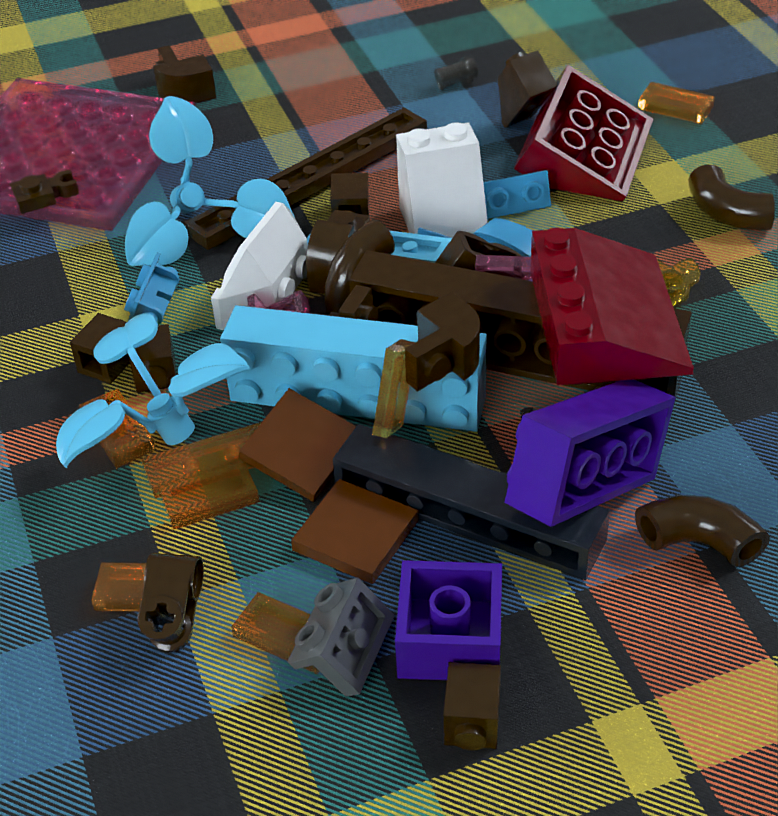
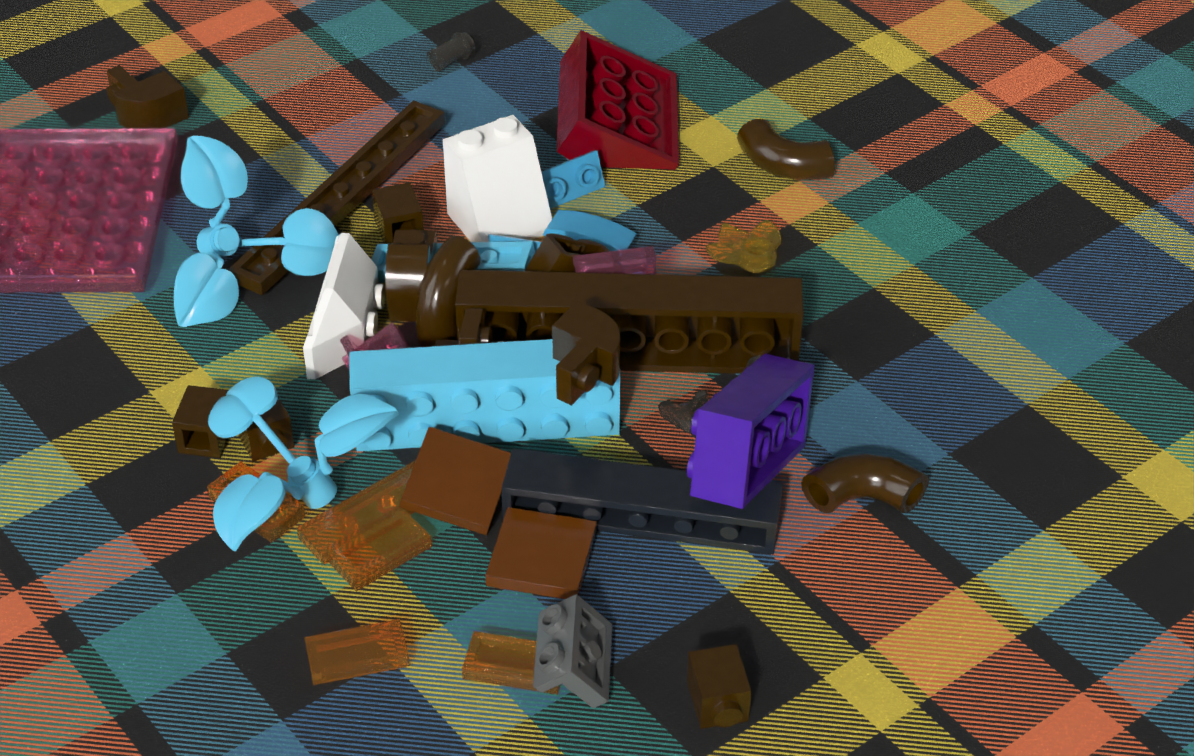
camera: 20 degrees left, 0 degrees up
(39, 192) = (49, 263): dark brown plate -> none
(156, 290) = (226, 354): dark azure hinge -> none
(172, 591) = (397, 650): dark brown piece -> none
(392, 391) = (545, 407): clear orange tile -> none
(447, 617) = (670, 611): dark purple brick -> none
(524, 87) = (541, 60): dark brown slope -> none
(604, 309) = (720, 291): dark red slope -> none
(676, 102) = (693, 51): clear orange tile -> none

